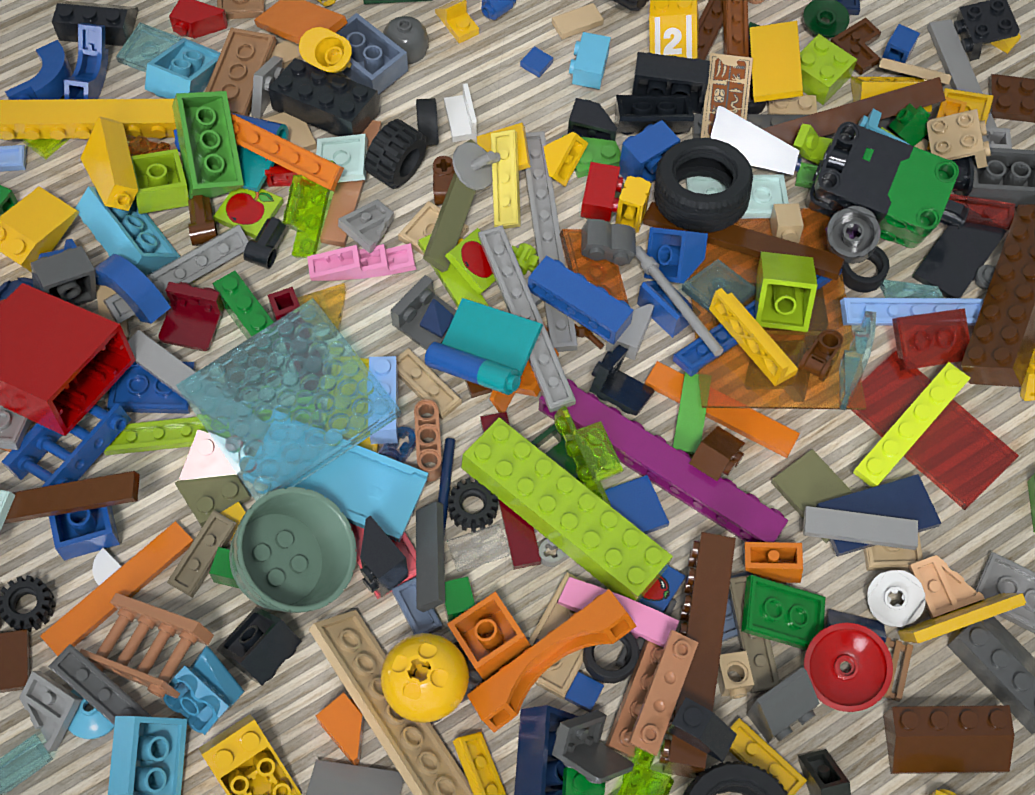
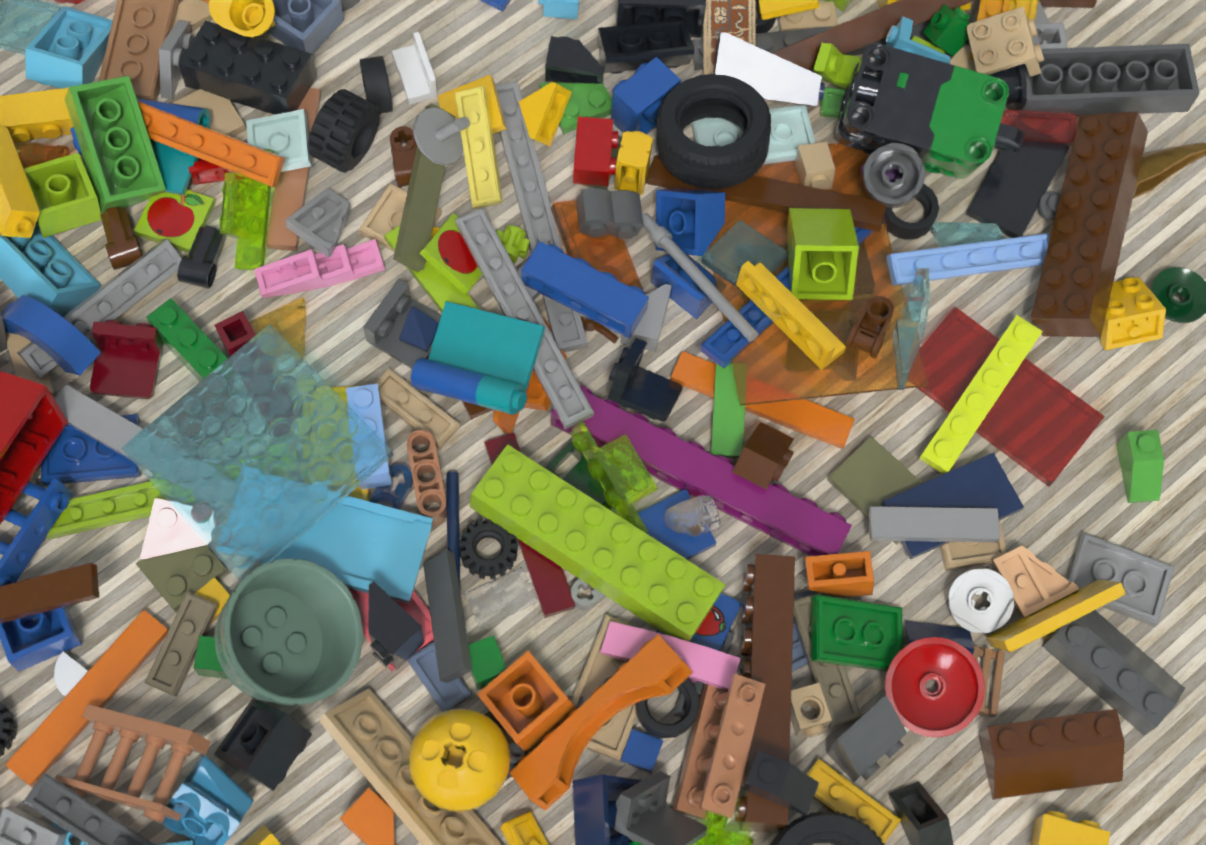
camera: 10 degrees left, 5 degrees up
(651, 497) = (693, 516): none -> clear rock
(931, 338) = (994, 289): clear red tile -> none

